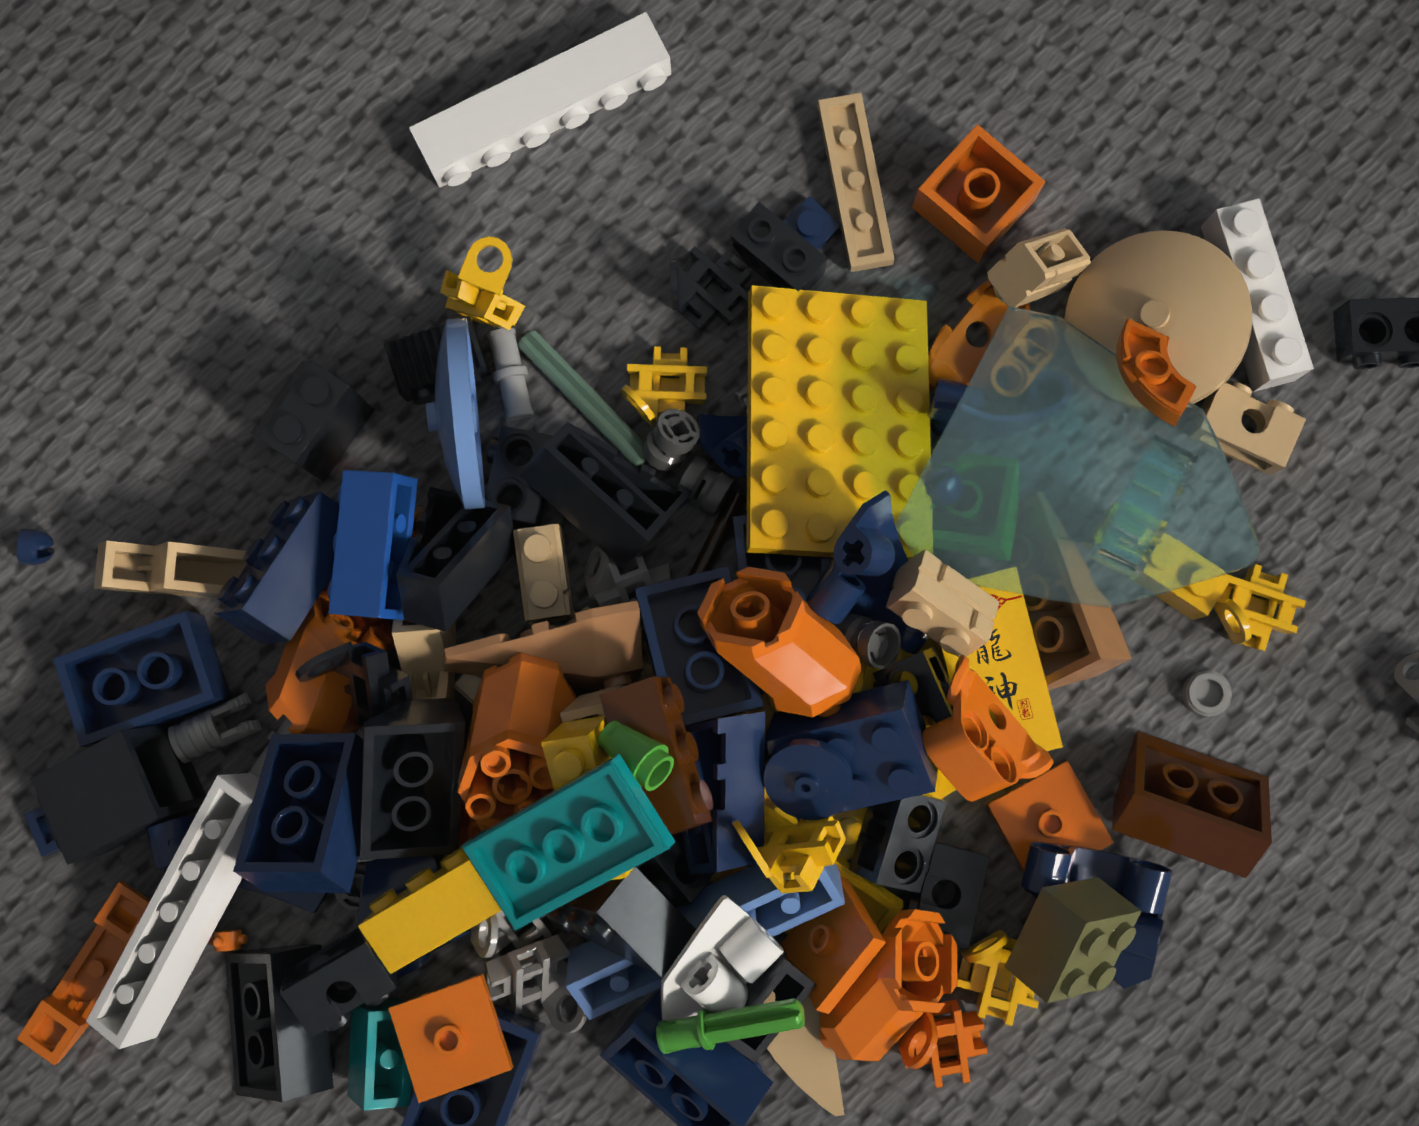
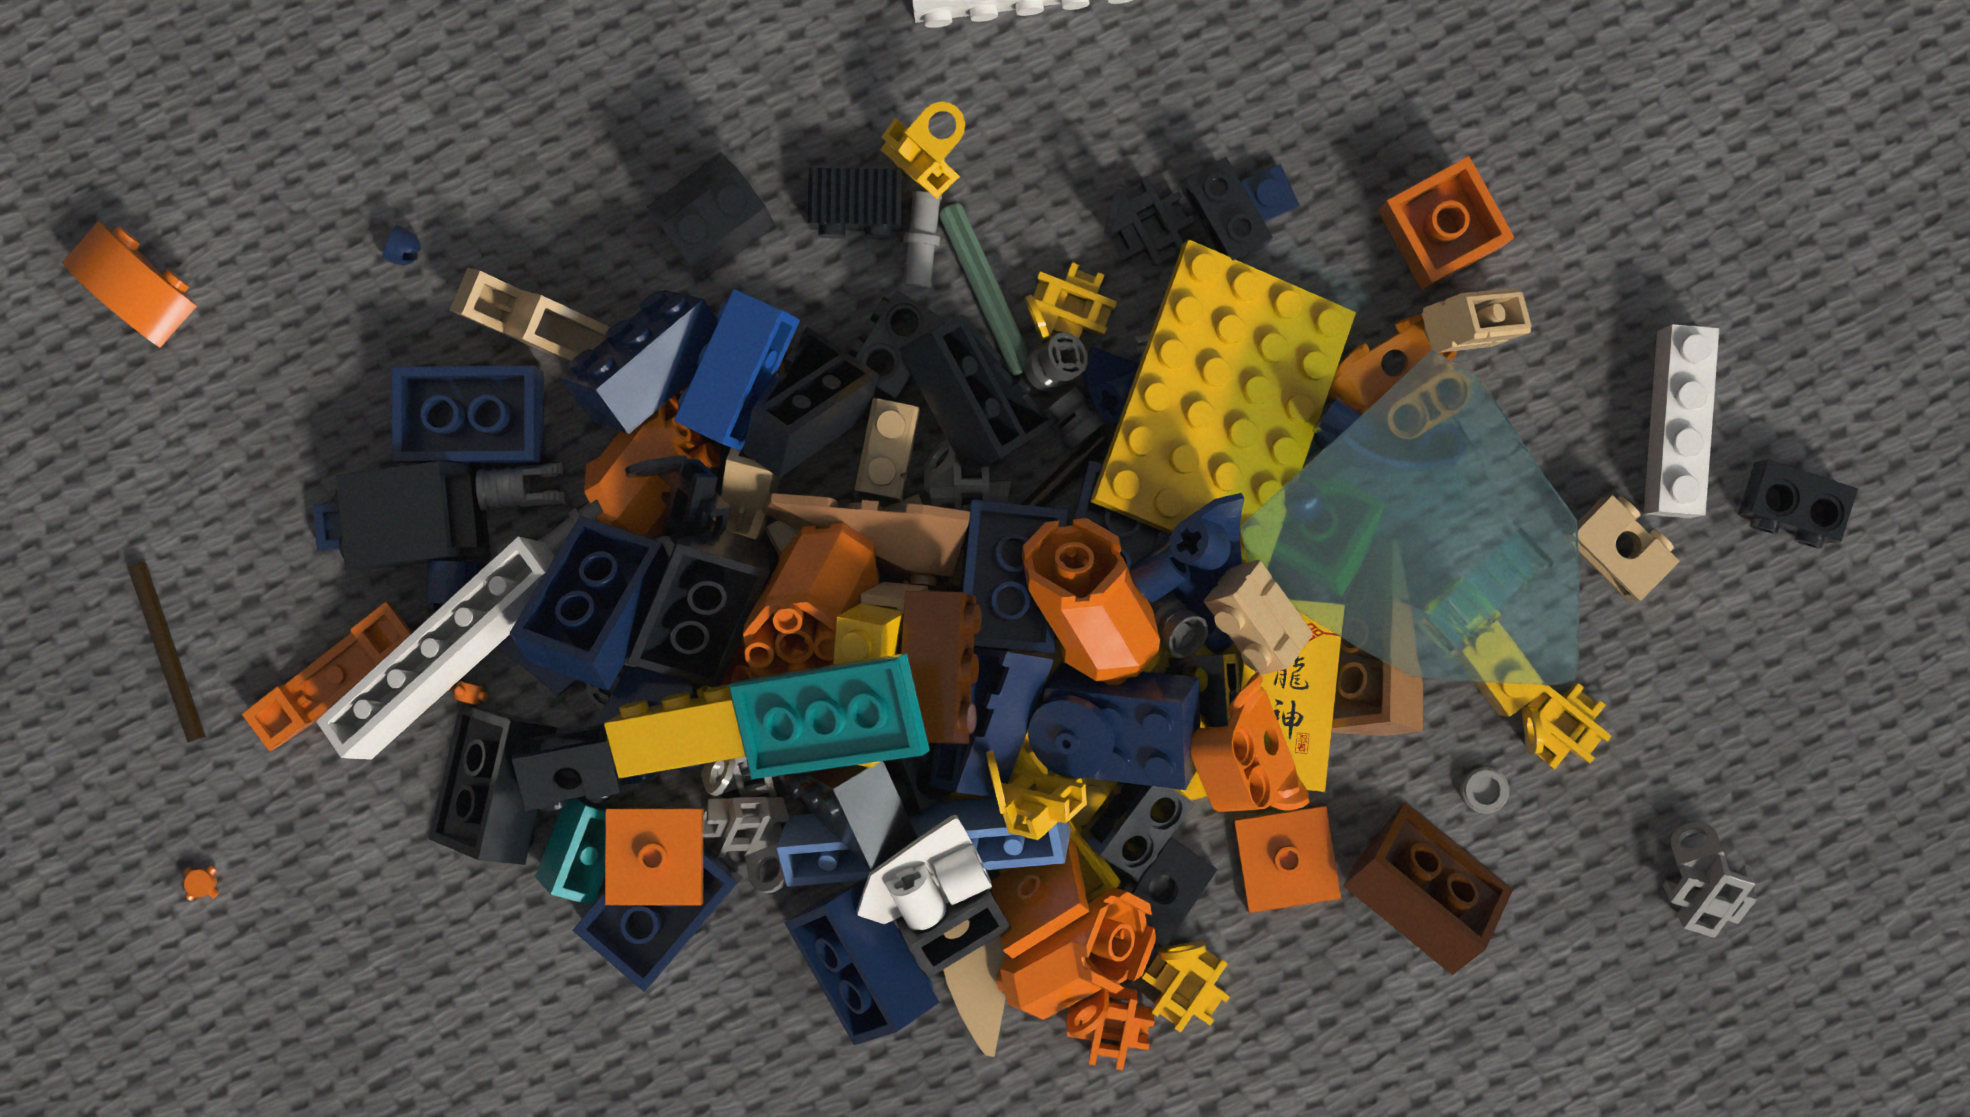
camera: 15 degrees right, 5 degrees up
(456, 414) = (860, 272): medium blue dish -> none
(643, 755) = (927, 662): bright green cone -> none
(729, 1025) = (917, 934): bright green axle -> none
(855, 182) = (1330, 166): tan plate -> none
(1073, 939) = (1265, 972): olive brick -> none
(1135, 879) = (1310, 948): dark blue panel -> none
(1149, 372) = (1541, 466): orange tile -> none
(1175, 288) = (1584, 407): tan dish -> none

